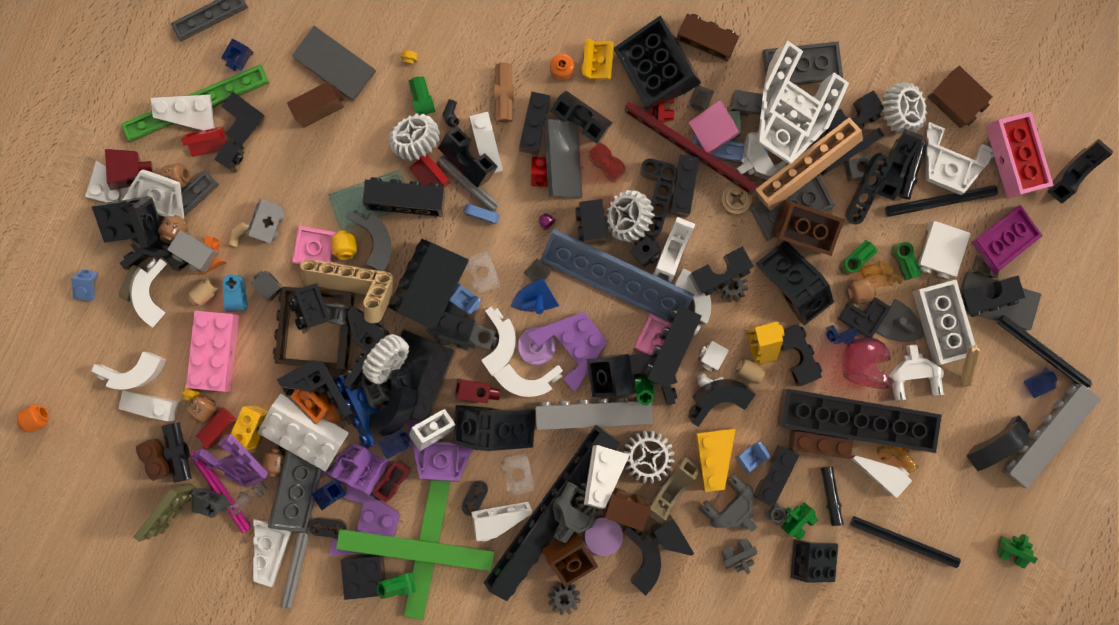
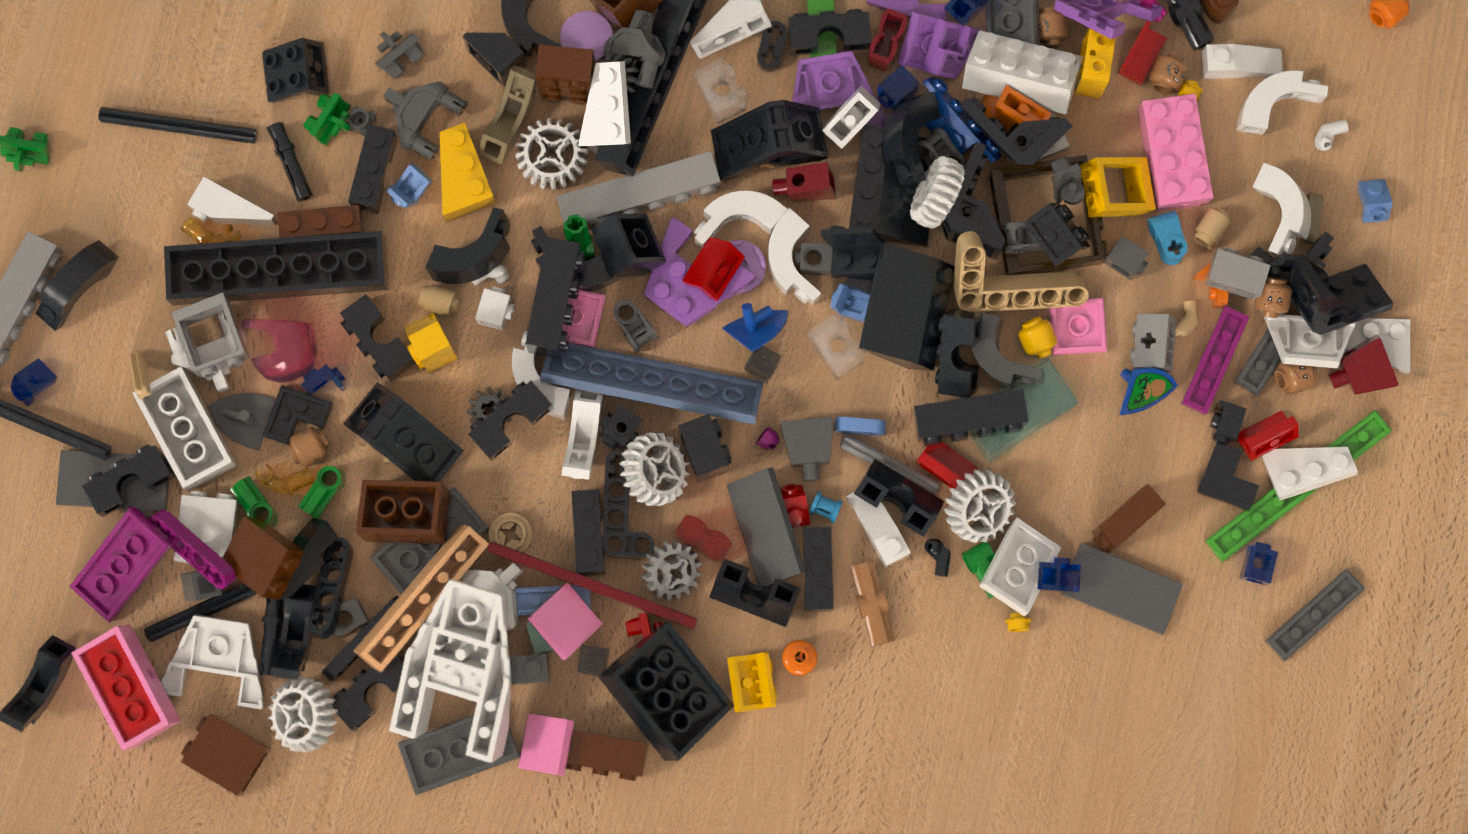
camera: 165 degrees right, 5 degrees down
(104, 340) = (1327, 132): none -> white arm
(226, 200) = (1215, 360): none -> magenta plate
(246, 334) = (1137, 186): none -> yellow window
(280, 192) = (1145, 388): none -> shield
(292, 343) = (1067, 182): none -> dark grey hips
(373, 76) = (1059, 575): none -> clear blue brick
(397, 90) = (1015, 566): none -> white plate
(407, 231) = (955, 375): none -> black arch
(415, 495) = (851, 27): none -> black arch
(518, 165) = (825, 507): none -> dark azure bush
(519, 210) = (808, 444): none -> dark grey torso
(555, 345) = (714, 267): none -> red panel
(618, 320) = (635, 326): none -> dark grey piece
(635, 146) = (669, 557): none -> light grey gear
(745, 50) = (546, 744): none -> bright pink tile
(883, 213) = (313, 540): none -> black slope
(913, 216) = (262, 557): none -> reddish brown brick
(932, 381) = (198, 312): none -> light grey window
(955, 212) = (198, 587): none -> dark grey brick
(958, 234) = (194, 550): none -> magenta beam

